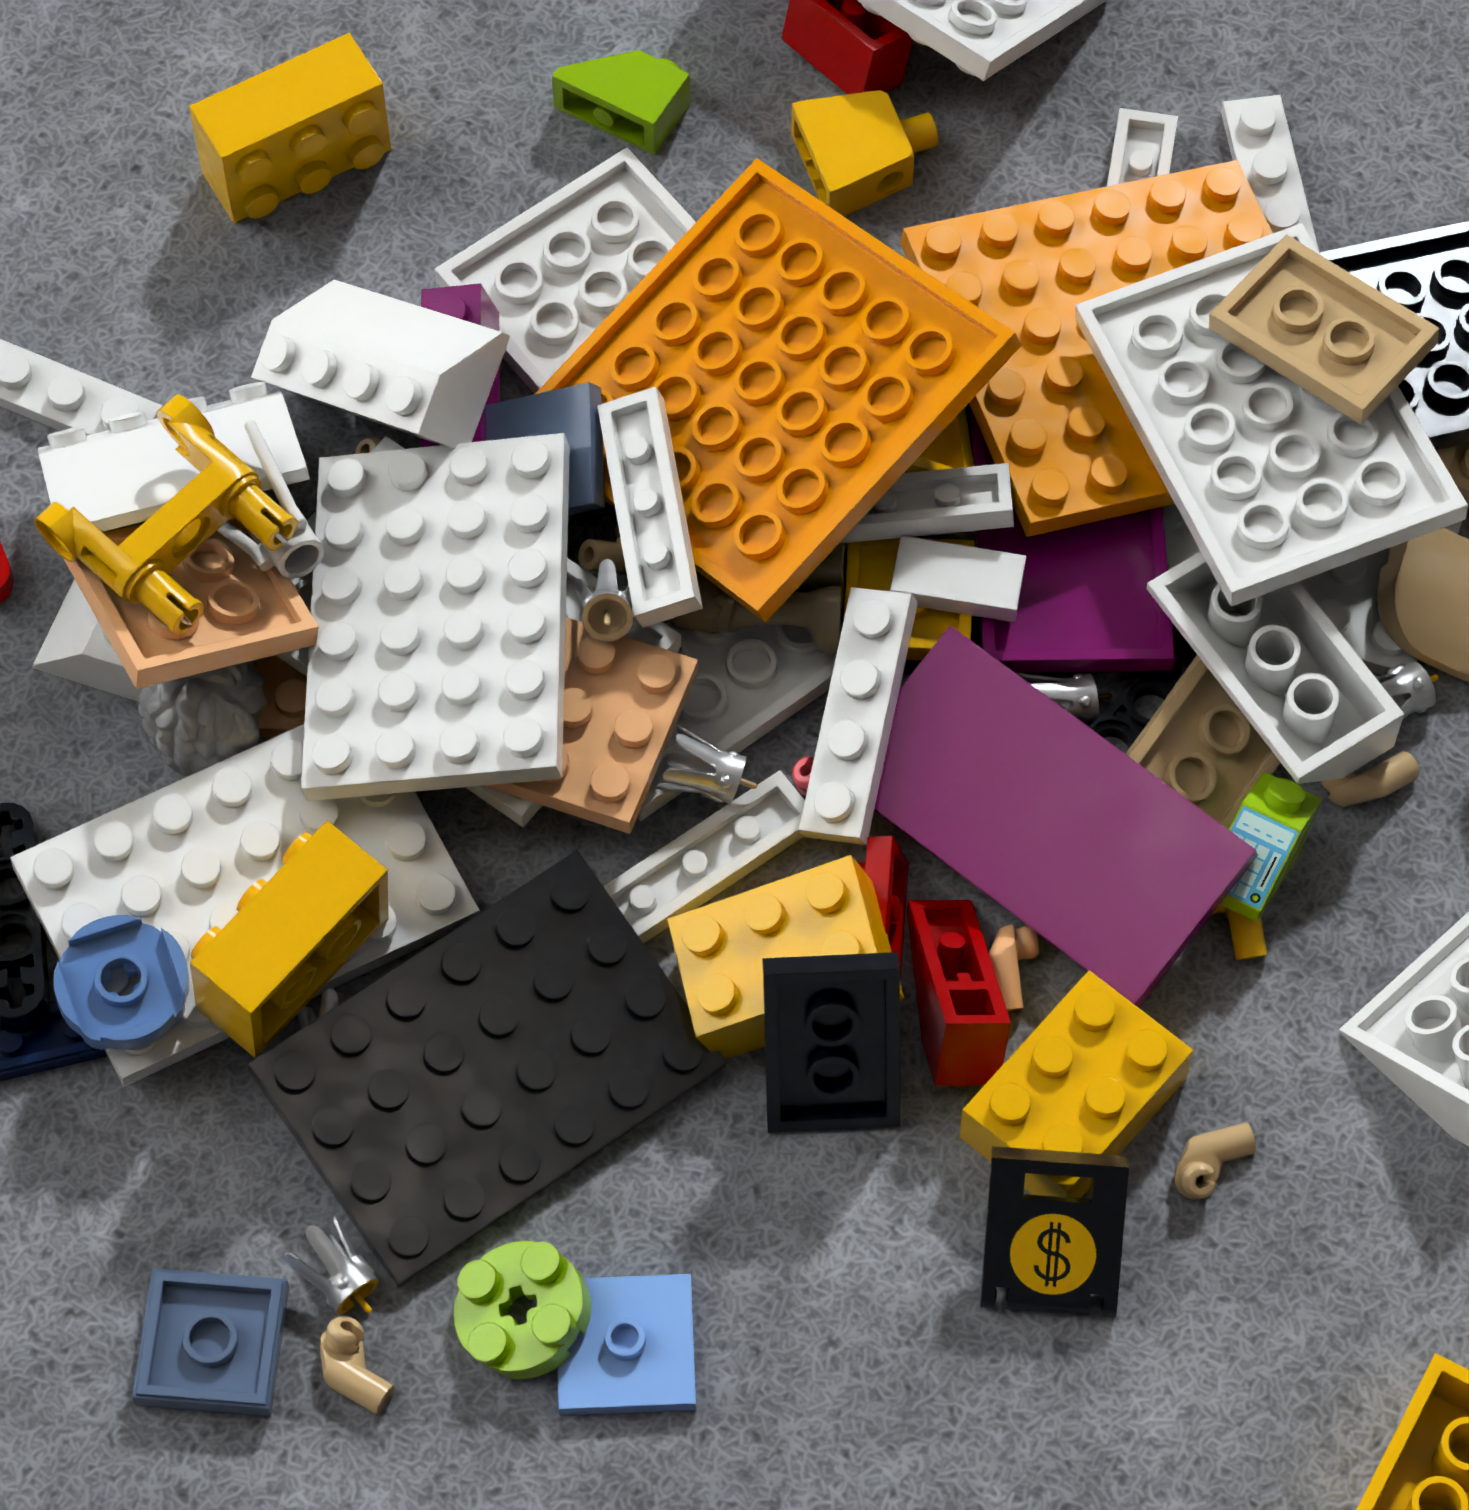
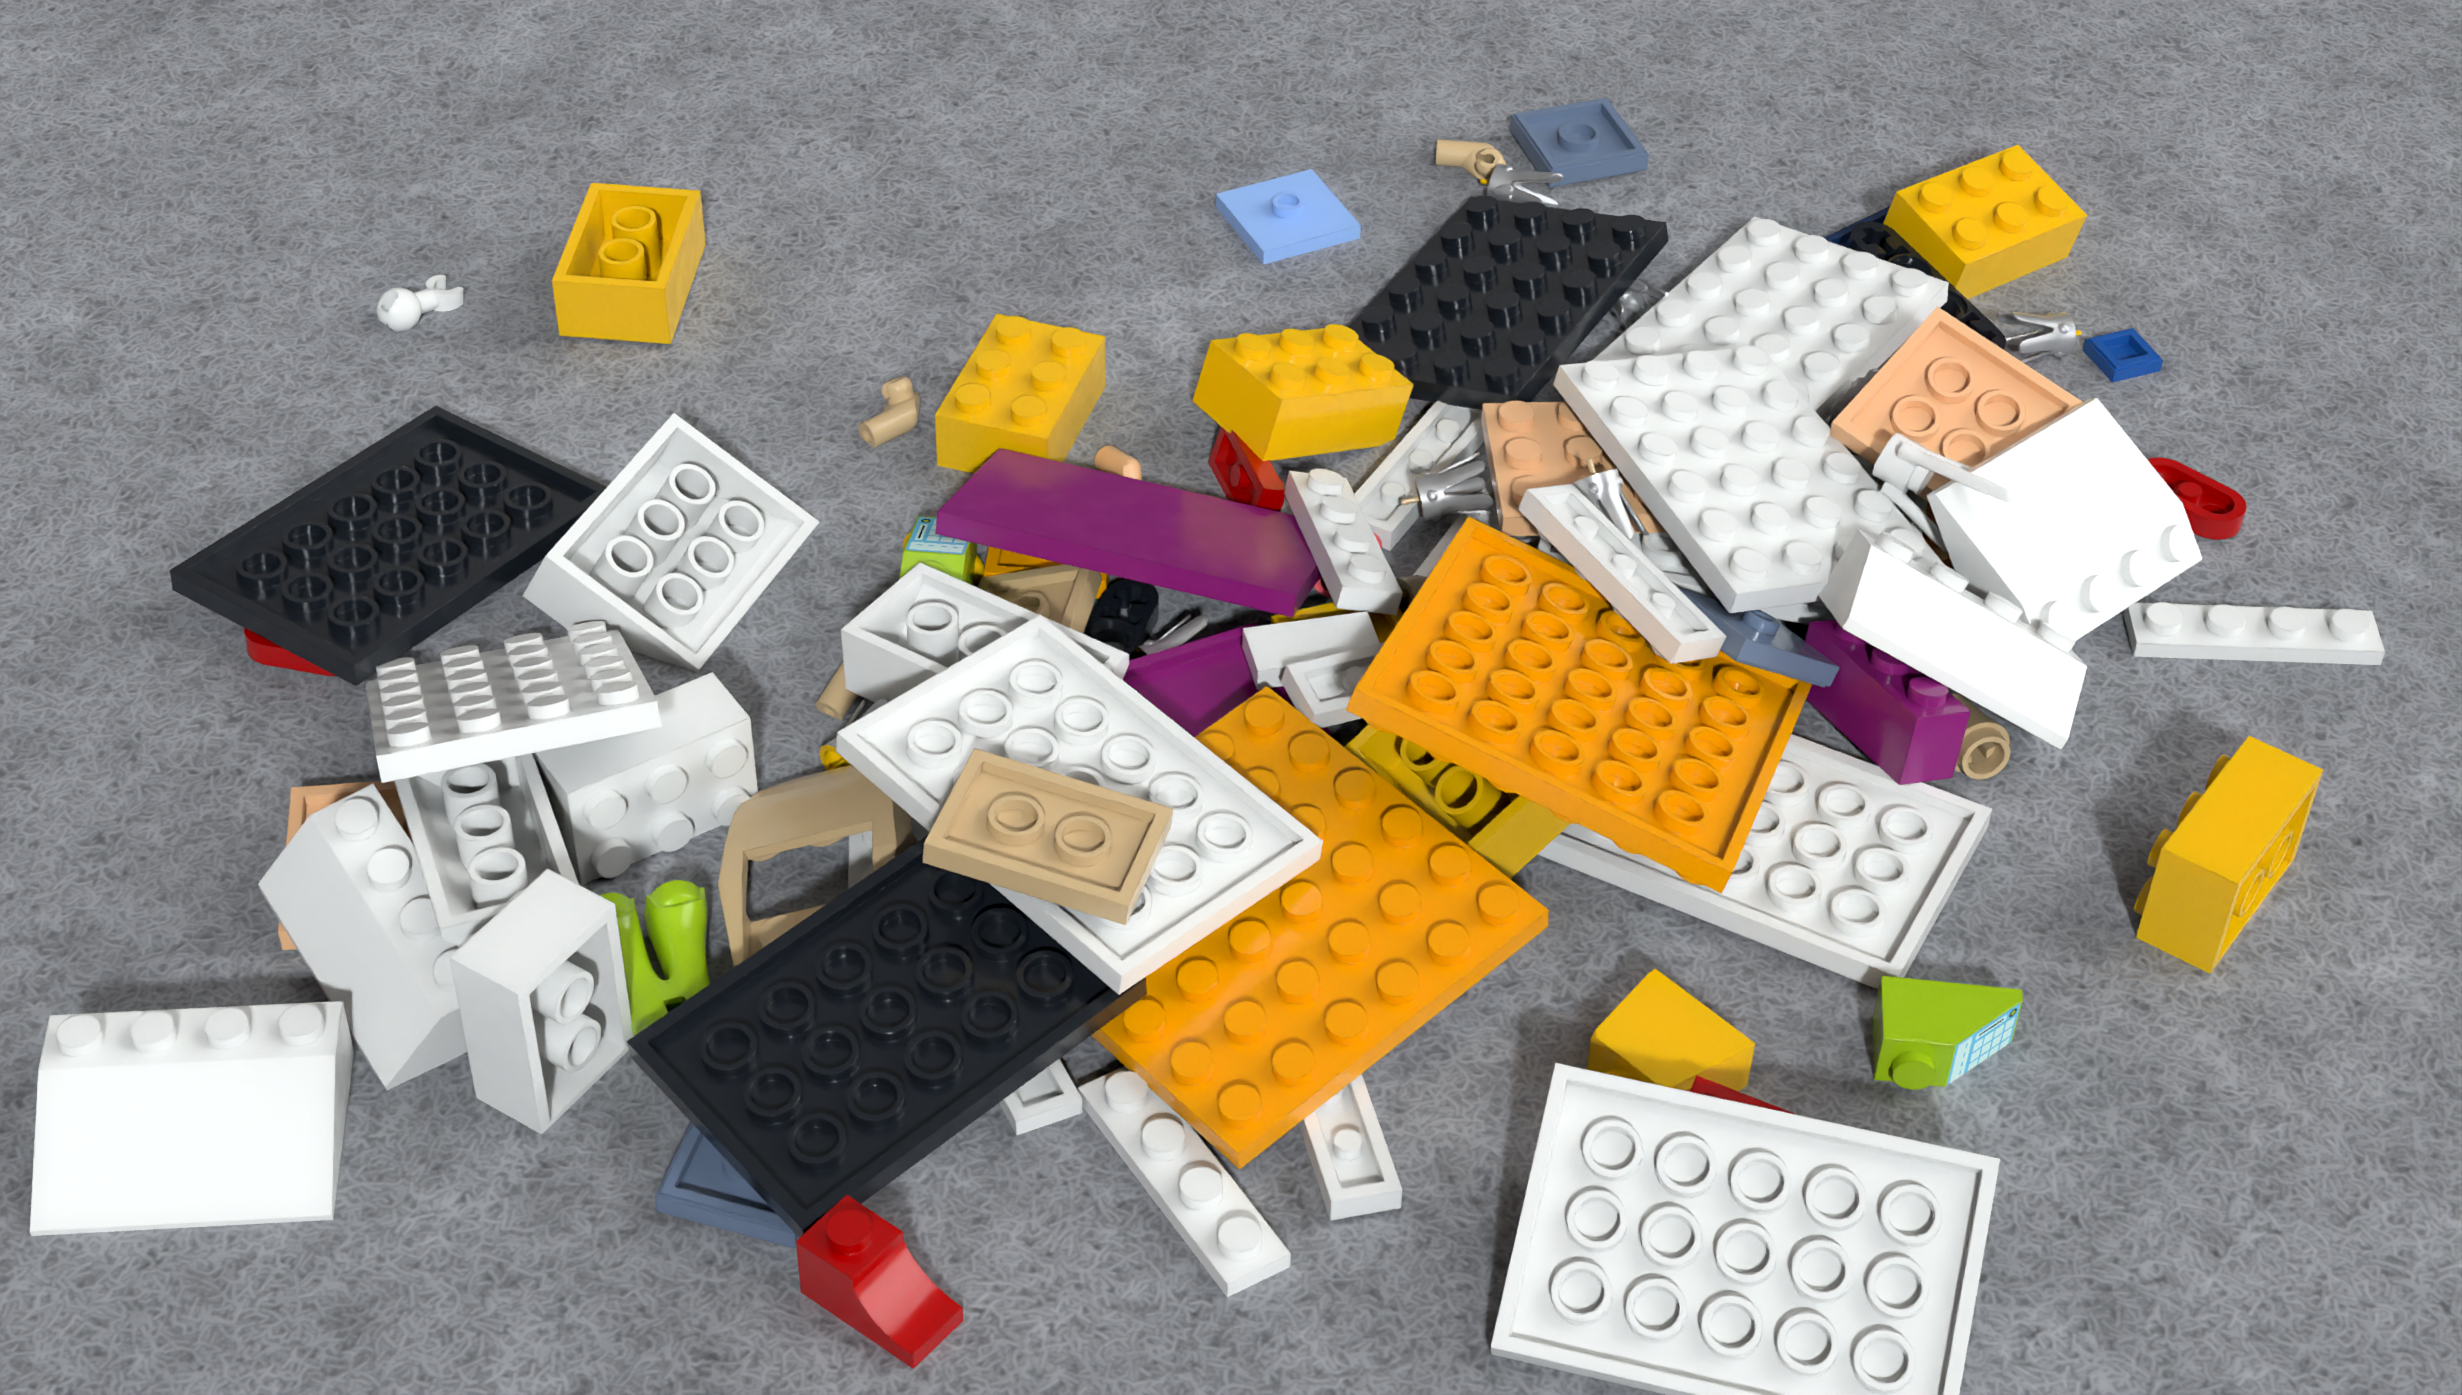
camera: 155 degrees right, 20 degrees down
(116, 1020) = (1794, 225): medium blue plate -> none
(142, 562) = (1985, 428): yellow connector -> none
(289, 937) = (1687, 248): yellow brick -> none
(491, 1287) = (1373, 198): lime plate -> none
(832, 1042) = (1251, 307): black plate -> none
(956, 993) = (1150, 427): red slope -> none
(1054, 1247) = (974, 308): black container -> none

